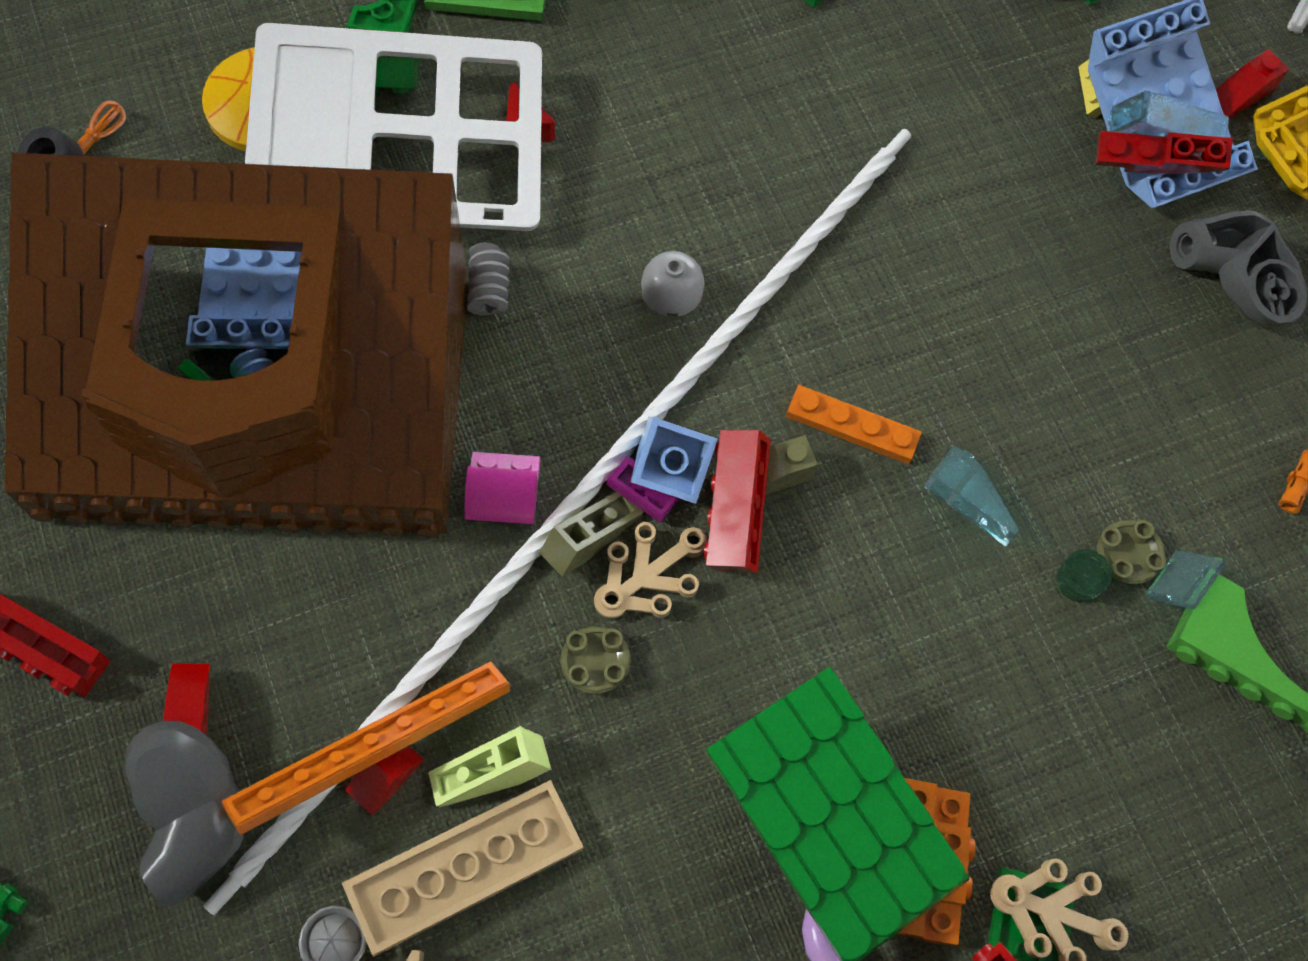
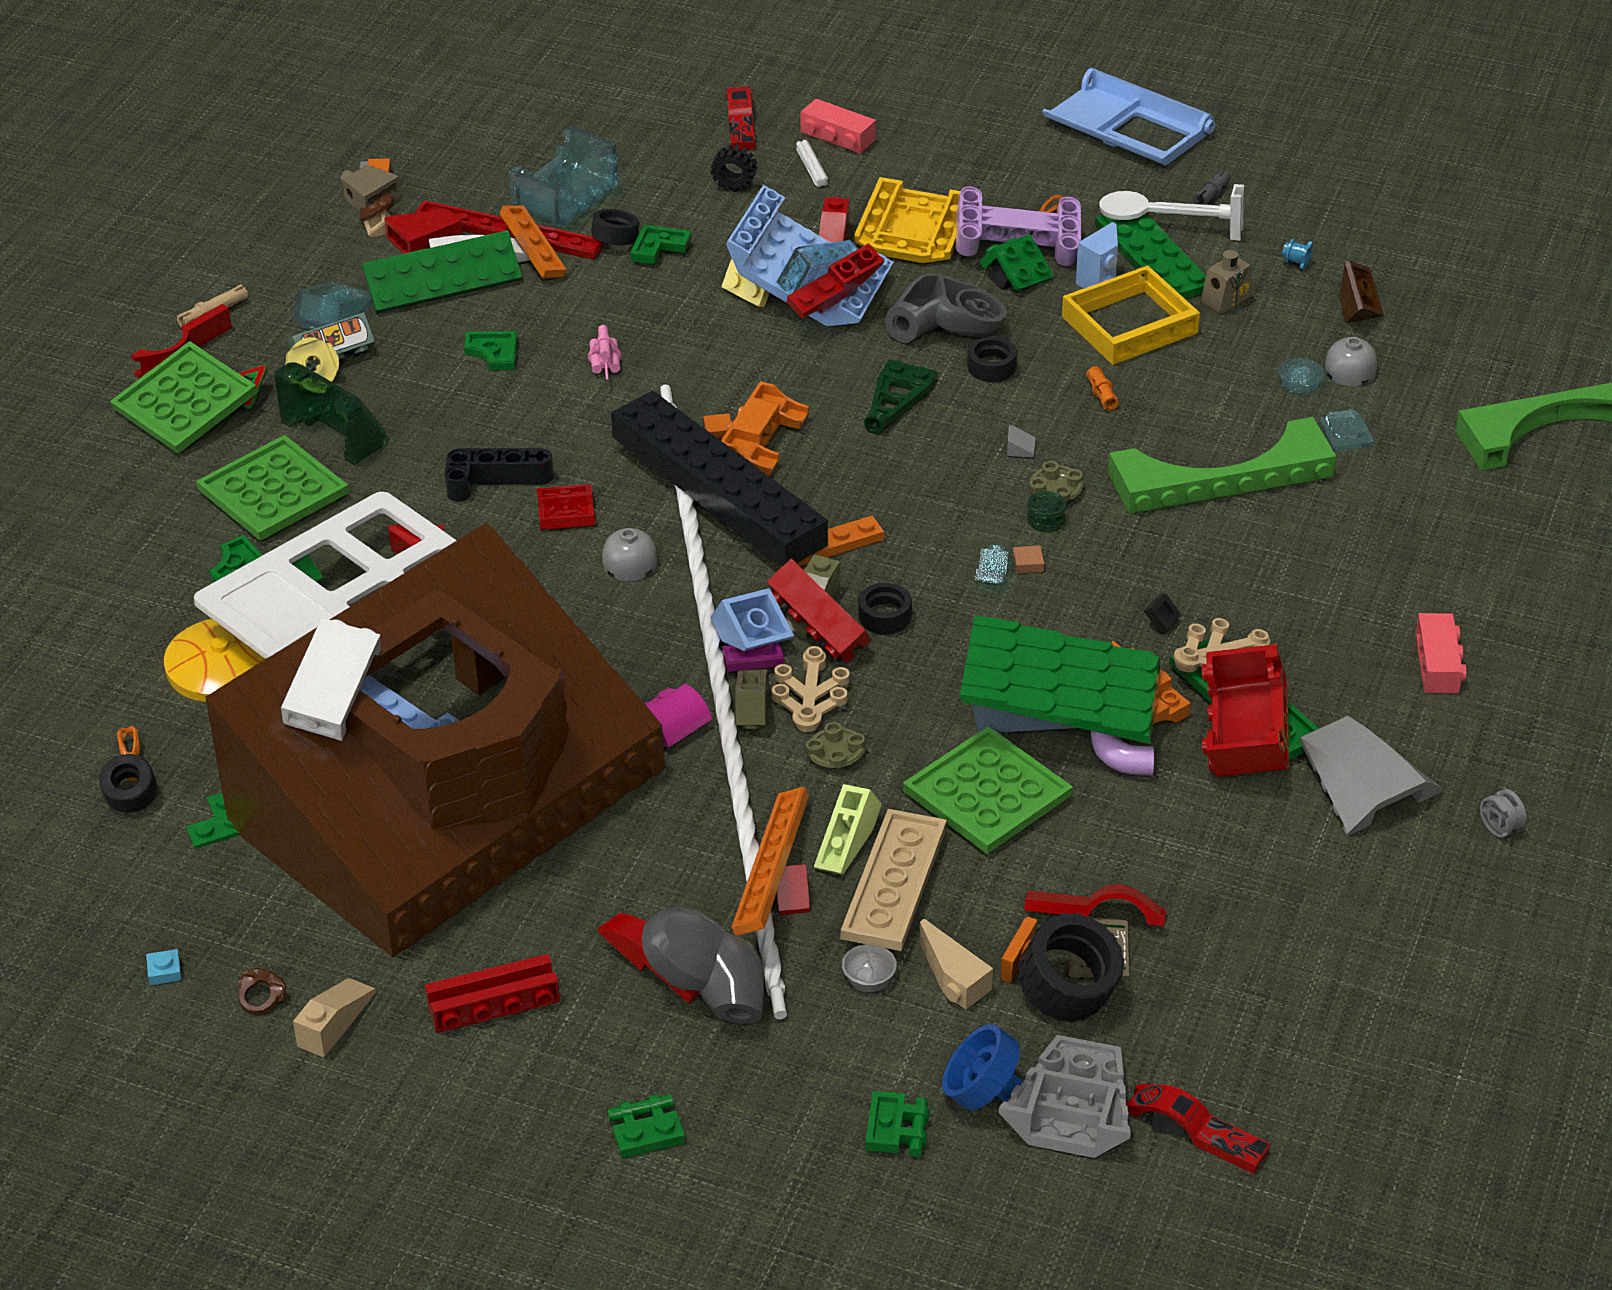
camera: 40 degrees left, 25 degrees down
(124, 224) = (330, 678): none -> white panel
(654, 76) = (495, 466): none -> black beam
(663, 848) = (987, 789): none -> bright green plate
(685, 184) = (565, 506): none -> red slope
(821, 280) = (720, 479): none -> black brick
(822, 524) = (885, 594): none -> black tyre
(897, 54) = (604, 352): none -> bright pink piece
(905, 212) = (717, 424): none -> orange tile
(929, 242) = (759, 421): none -> orange bracket
(962, 592) = (993, 565): none -> clear light blue slope
(967, 488) = (940, 520): clear light blue slope -> none
(1007, 613) = (1028, 559): none -> nougat tile
(1056, 805) = (1162, 612): none -> pearl dark grey plate
(1129, 300) = (896, 373): none -> dark green plate
(1150, 473) = (1020, 443): none -> light grey slope
(1185, 579) = (1100, 470): clear light blue piece -> none
(1243, 338) = (989, 370): none -> black tyre

